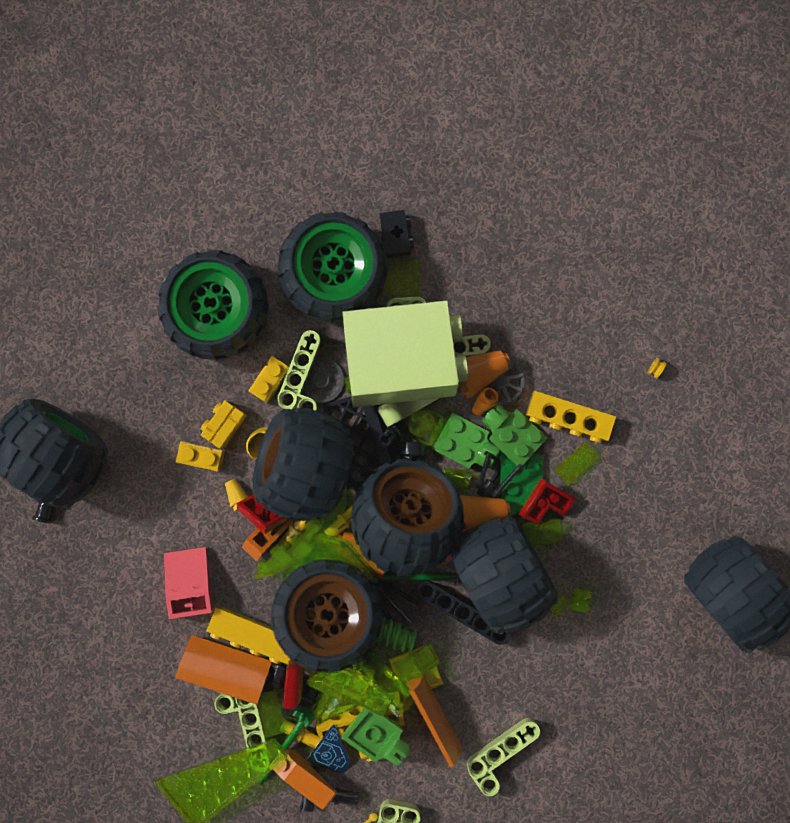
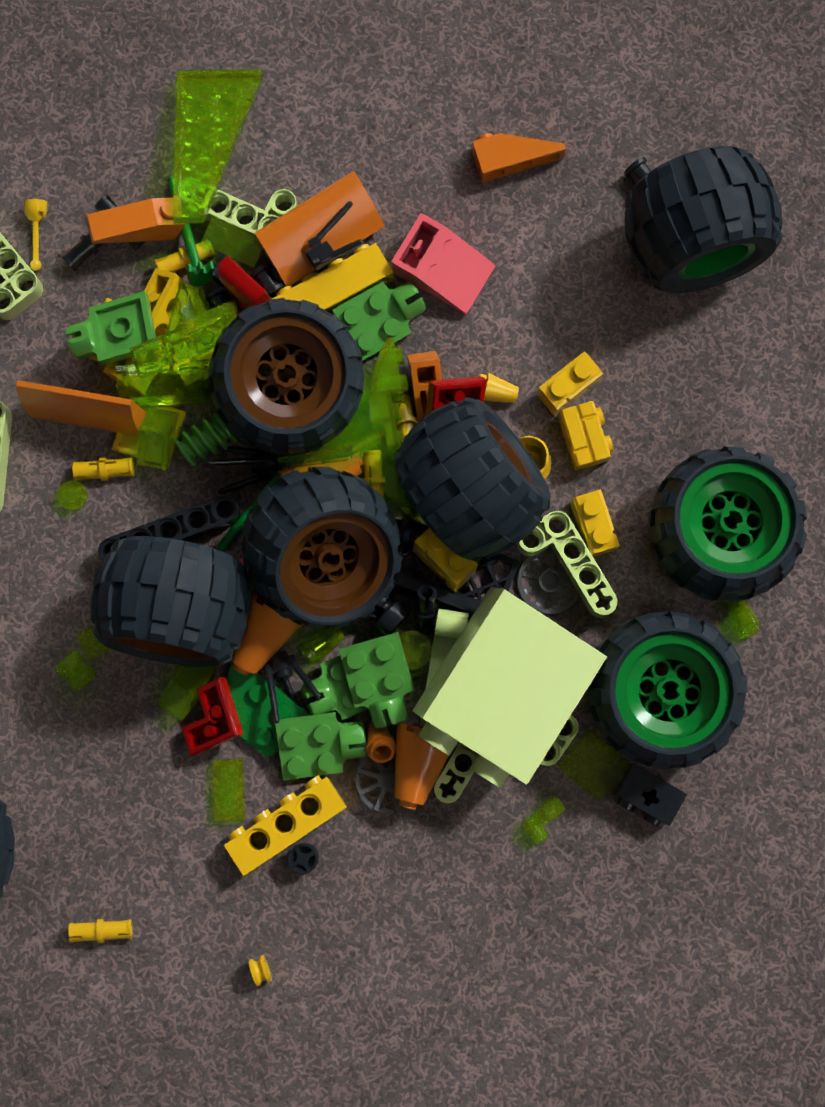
camera: 130 degrees right, 5 degrees down
(91, 597) = (508, 154): none -> orange slope
(237, 656) = (321, 253): none -> black plant
(247, 595) = (380, 315): none -> bright green plate
(258, 256) = (742, 619): none -> clear neon green cone
(331, 752) = (139, 272): dark blue sticker -> none
(360, 445) = (443, 561): none -> yellow brick
(448, 281) = (545, 814): none -> clear neon green arm
(451, 429) = (379, 678): none -> bright green plate
(458, 679) = (103, 469): none -> yellow pin
(486, 684) = (72, 495): none -> clear neon green plate
(583, 394) = (299, 861): none -> black wheel
(706, 470) = (100, 931): none -> yellow pin

